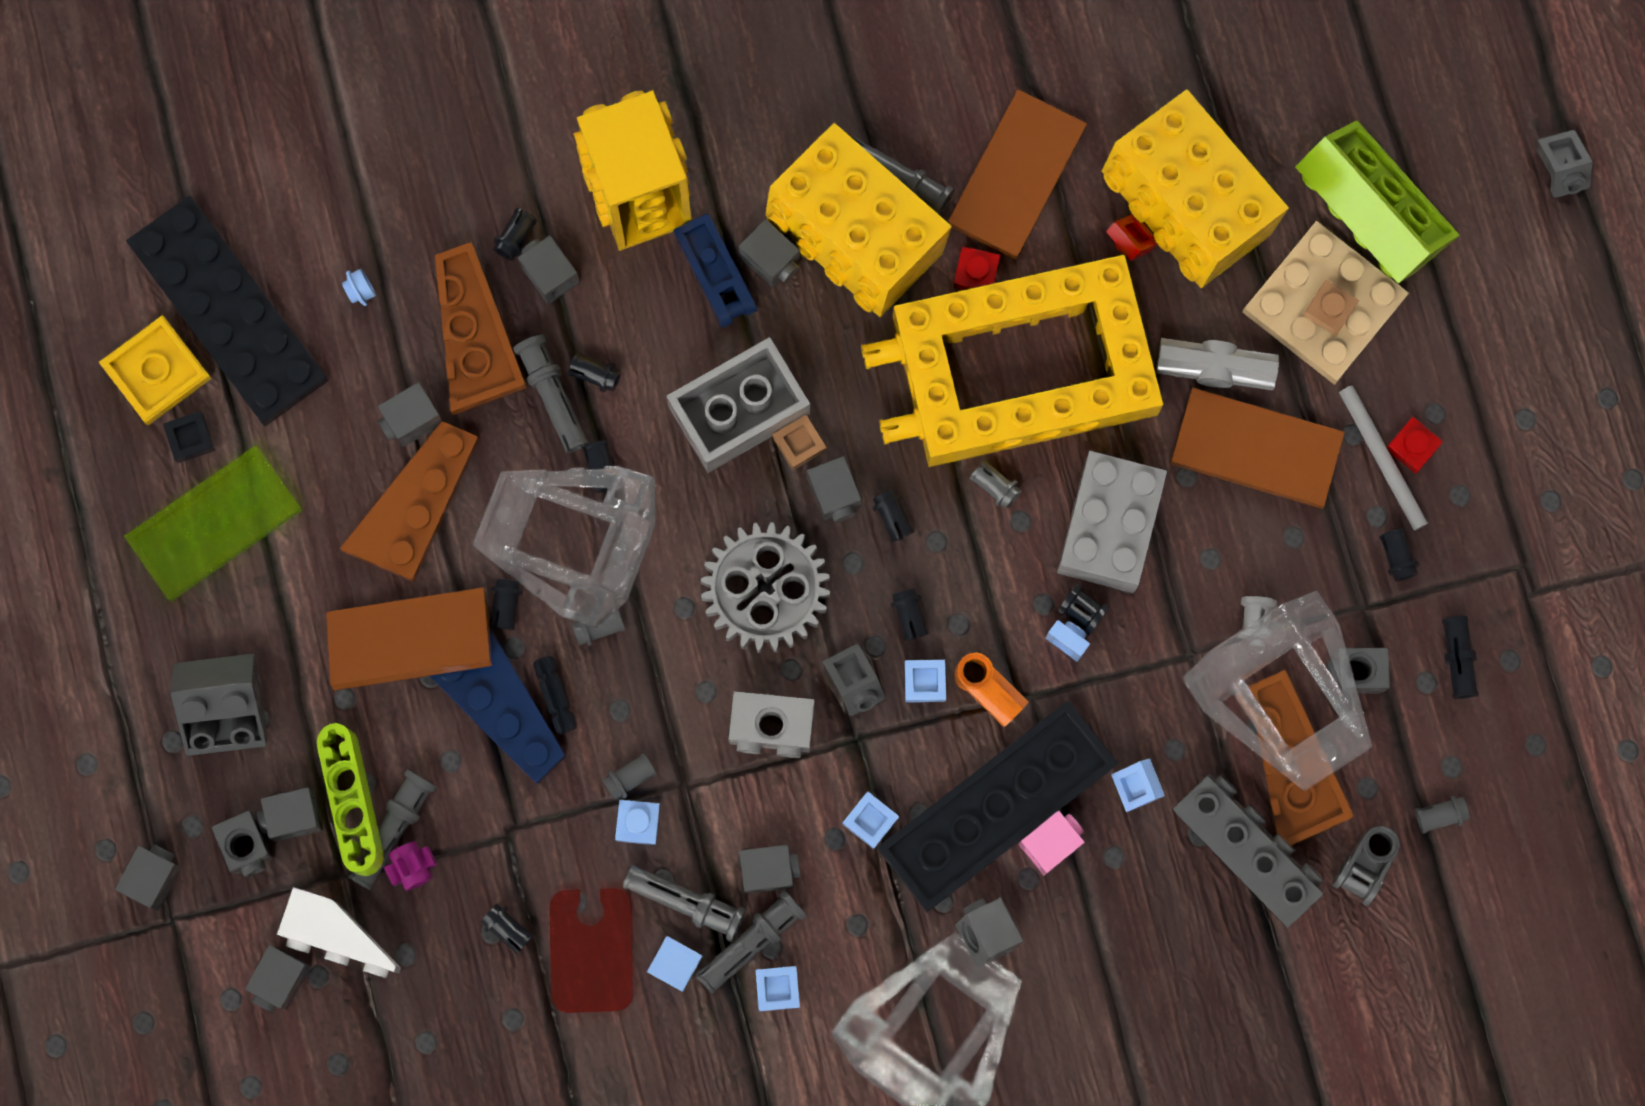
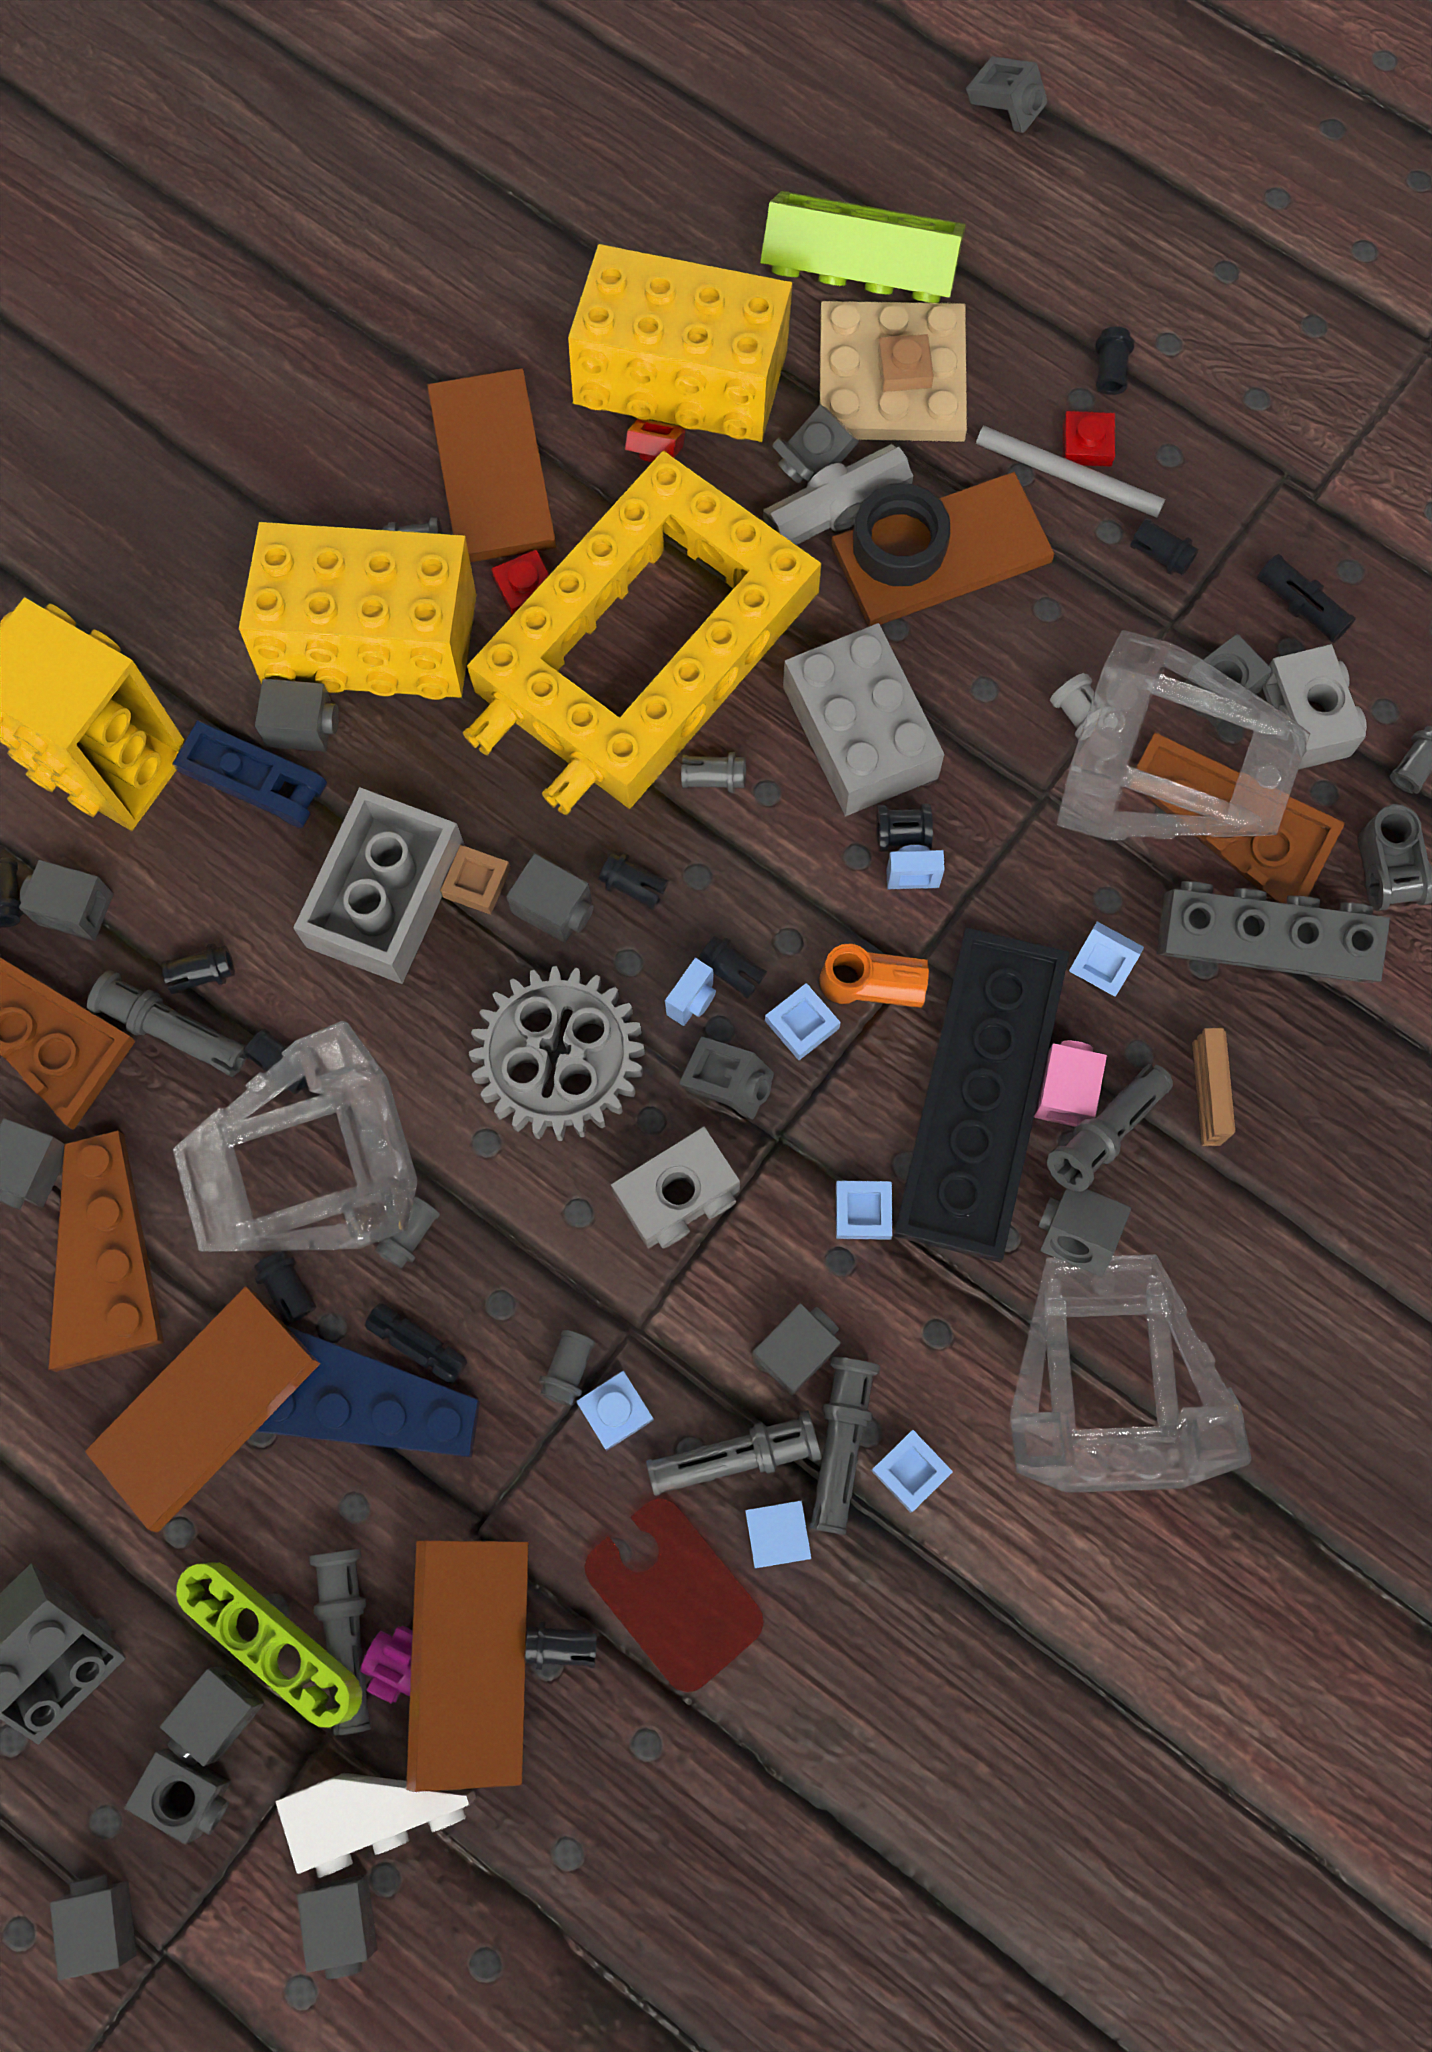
camera: 35 degrees left, 5 degrees down
(449, 896) = (467, 1665): none -> dark orange tile
(872, 613) = (691, 993): none -> light blue plate
(1037, 886) = (1099, 1138): none -> dark grey pin
(1137, 911) = (1213, 1087): none -> medium nougat tile
(1228, 319) = (815, 445): none -> dark grey bracket
(1240, 393) = (906, 500): none -> black tyre
(1408, 706) = (1322, 679): none -> light grey brick
(1474, 404) = (1114, 351): none -> black pin

